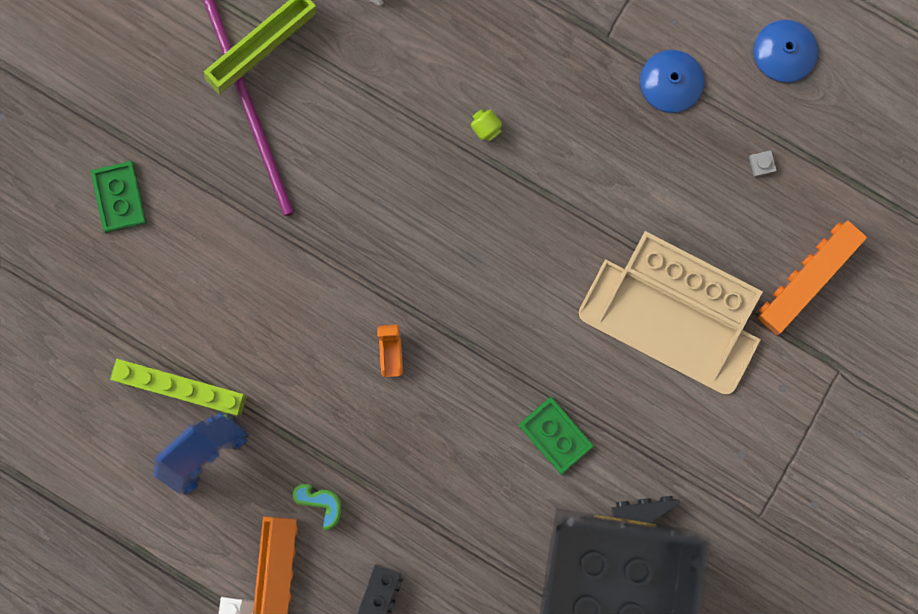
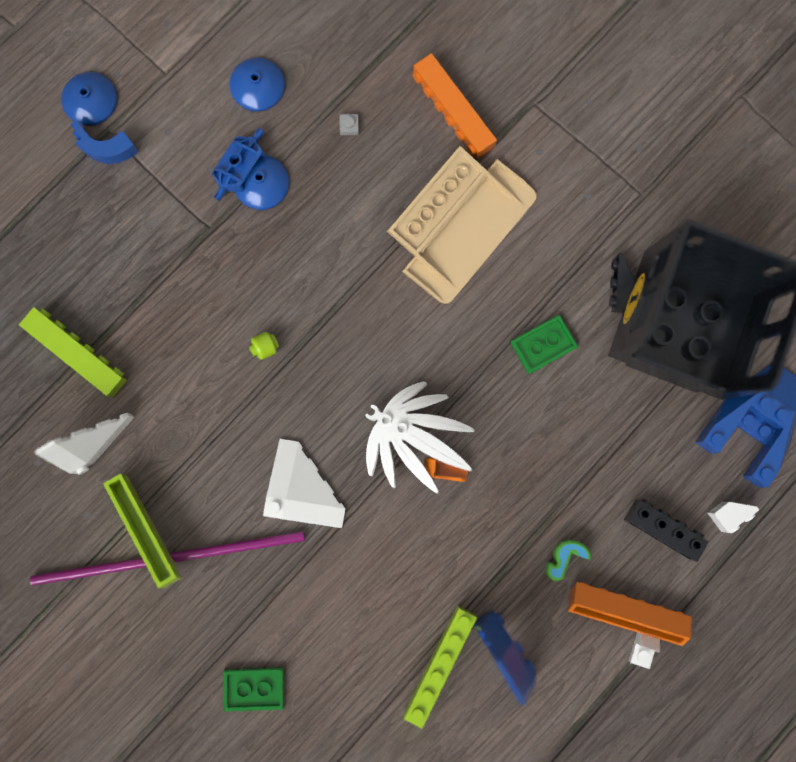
camera: 85 degrees left, 0 degrees up
(335, 197) = (298, 490): none -> white slope
(425, 285) = (397, 426): none -> white plant
(669, 48) = (232, 176): none -> blue plate

